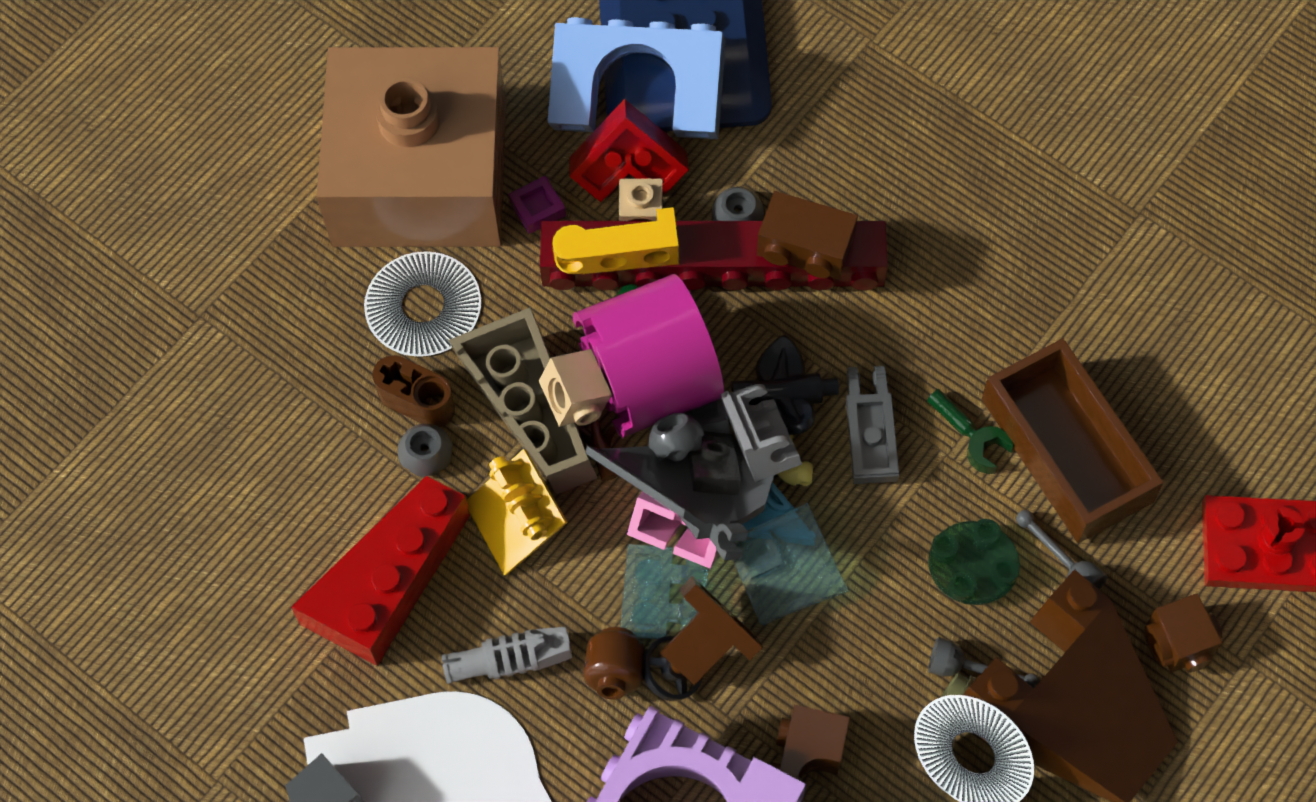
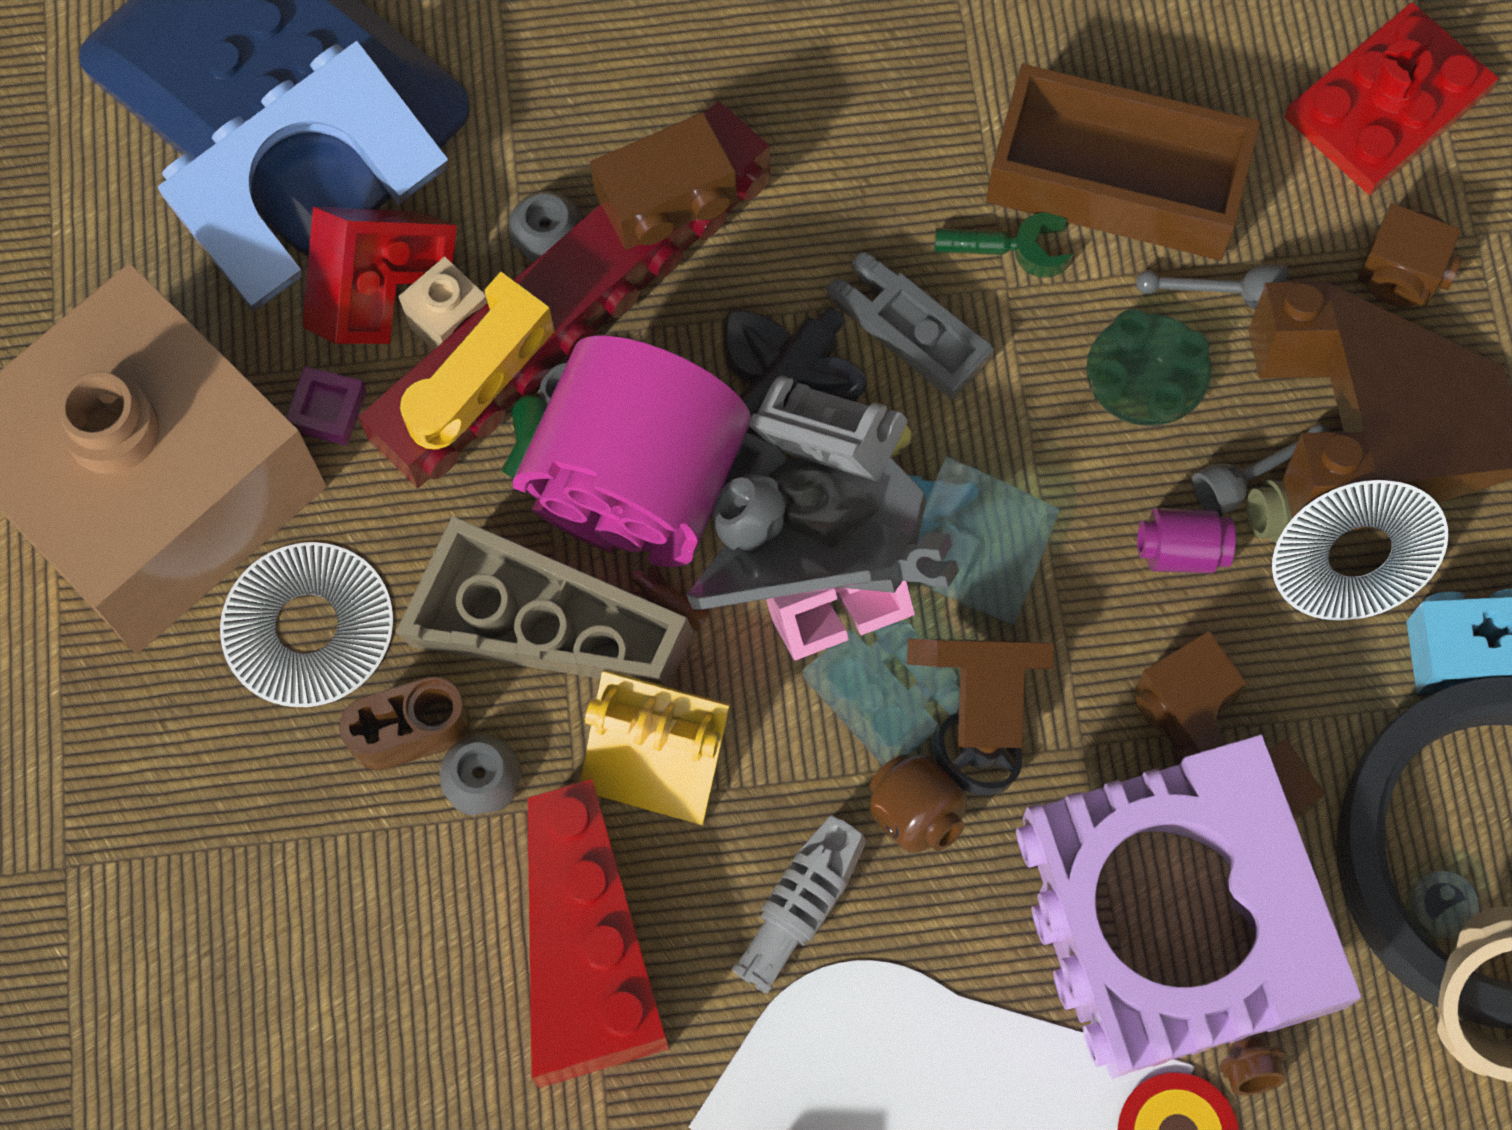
camera: 45 degrees left, 5 degrees up
(575, 388) = (601, 554): tan brick -> none
(895, 666) = (1186, 540): none -> magenta brick

